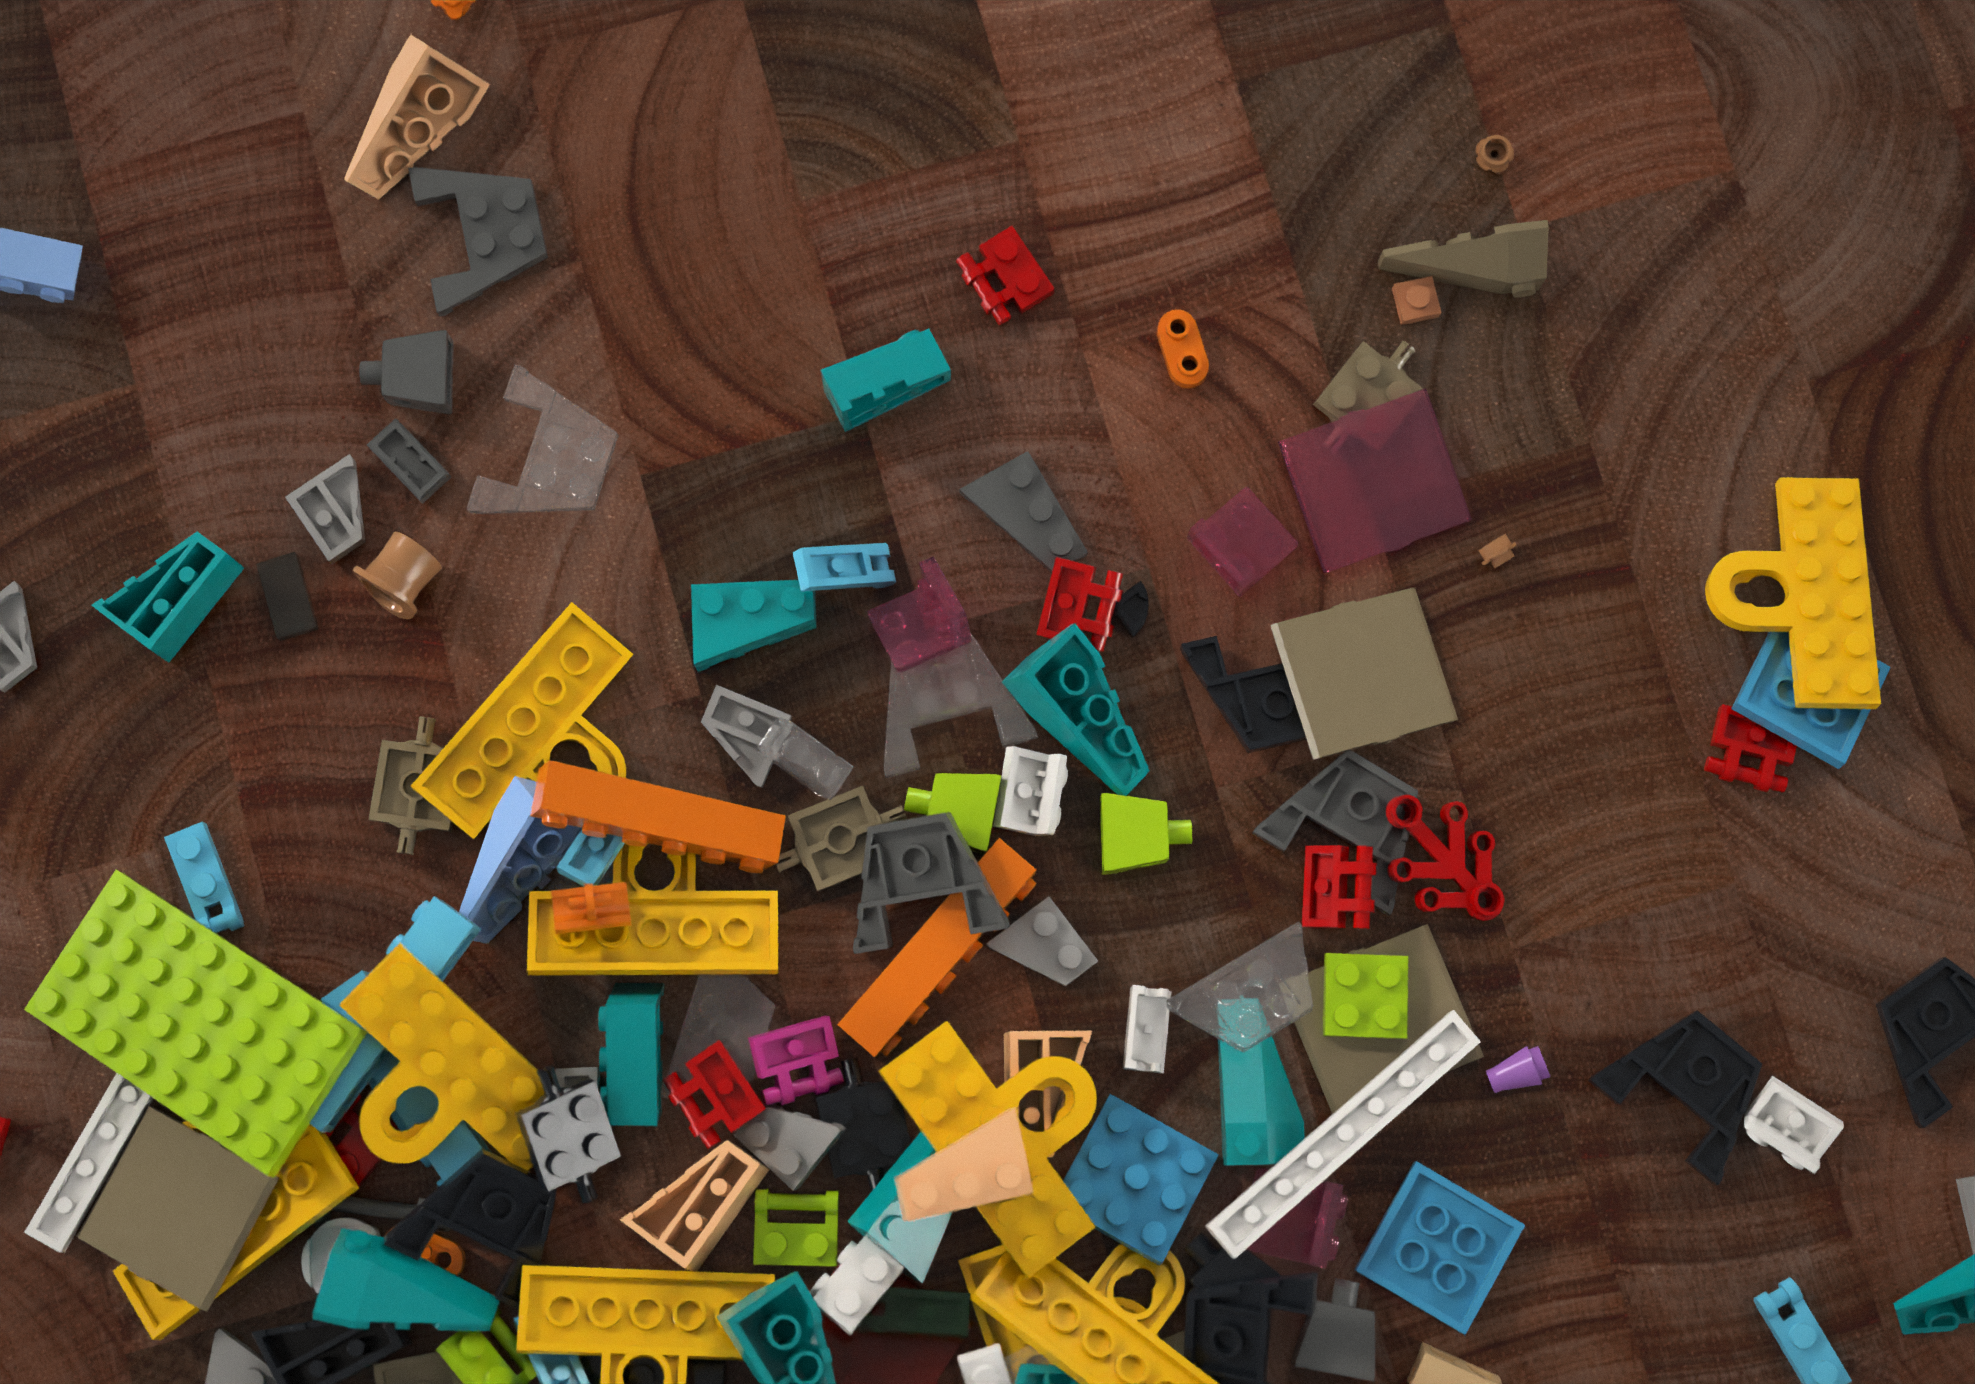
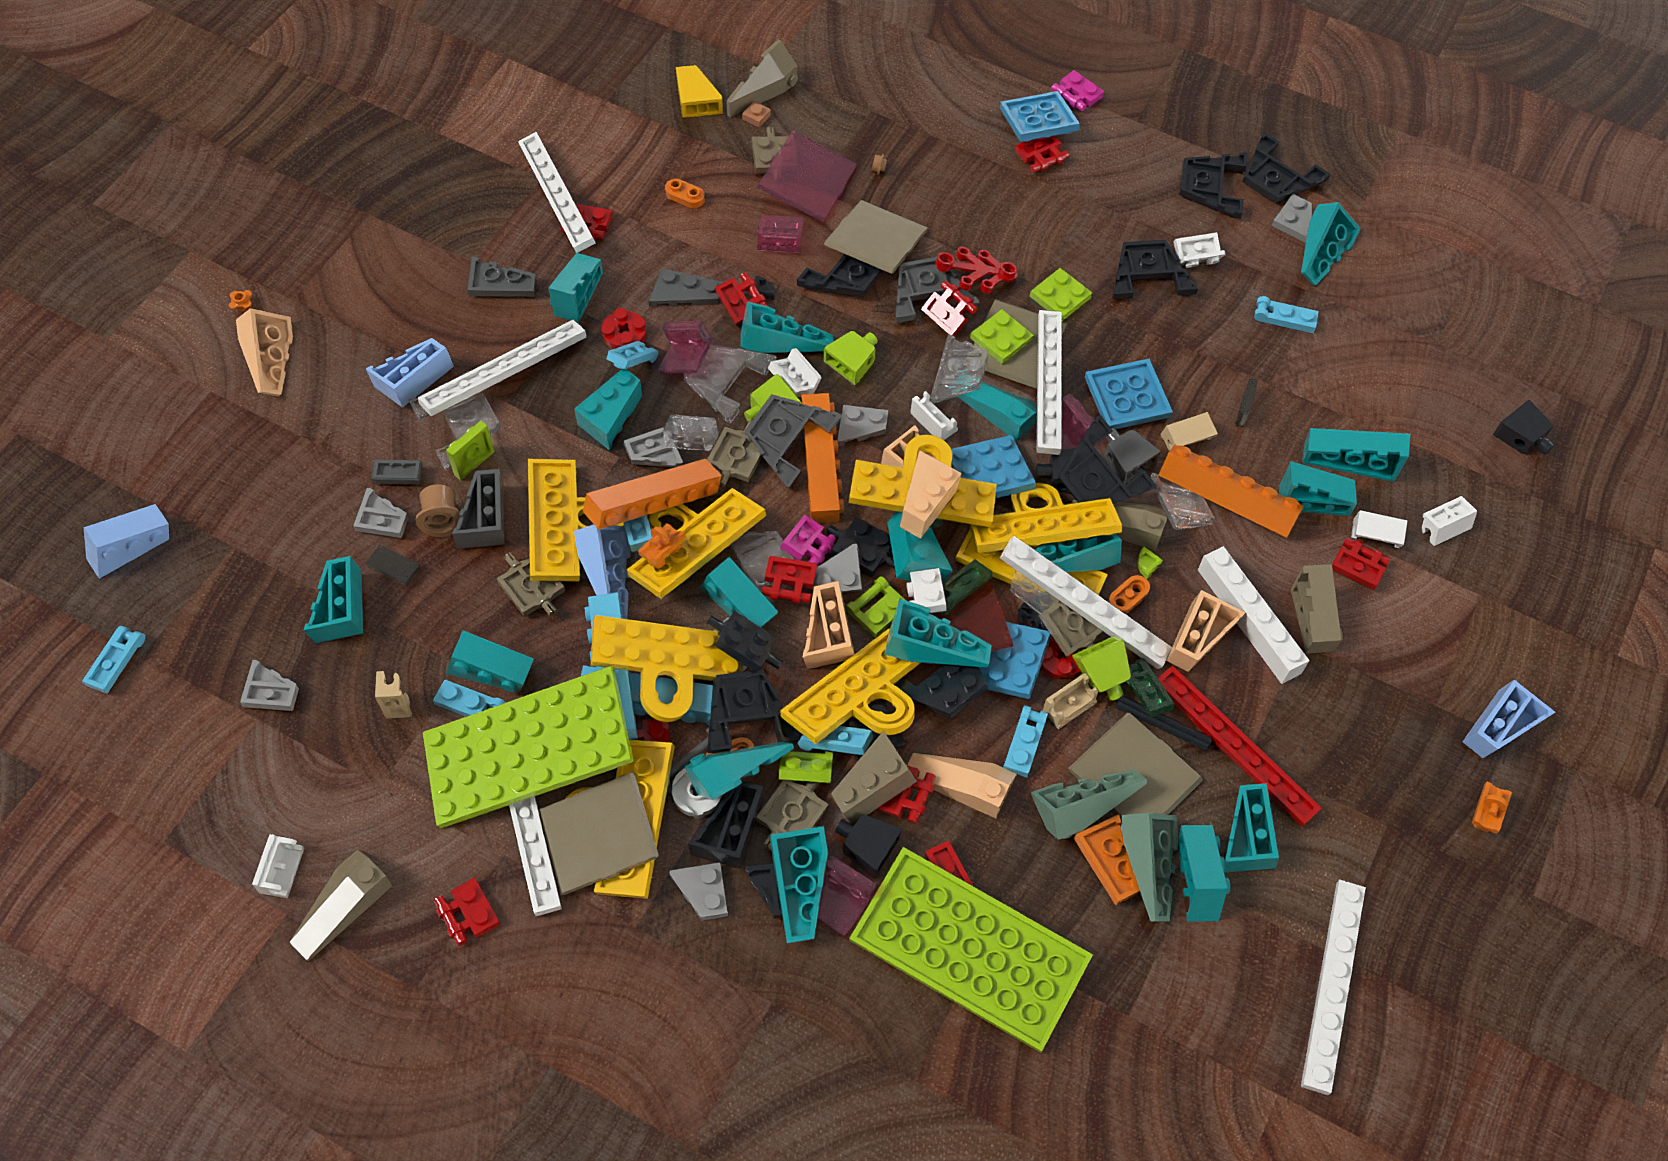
camera: 45 degrees left, 20 degrees down
(107, 791) = (390, 697): none -> tan hinge
(262, 857) = (488, 663): none -> teal wedge
(414, 371) = (365, 437): dark grey torso -> none
(451, 628) = (483, 513): none -> dark grey wedge
(498, 228) = (343, 361): dark grey wing -> none
(520, 522) = (470, 450): none -> lime plate
(552, 325) = (412, 372): none -> light blue wedge
(670, 426) = (501, 367): none -> white plate
(797, 268) = (493, 280): none -> dark grey wing
(867, 491) = (619, 320): none -> red plate
(1001, 195) = (556, 192): none -> white plate
(1362, 187) = (697, 93): none -> yellow slope
(1501, 146) = (732, 50): medium nougat plate -> none
(1518, 1071) = (1086, 313): medium lavender cone -> none
(1524, 1003) = (1061, 293): none -> lime plate
(1824, 590) = (1006, 83): yellow plate -> none
(1937, 689) = (1078, 91): none -> dark pink plate

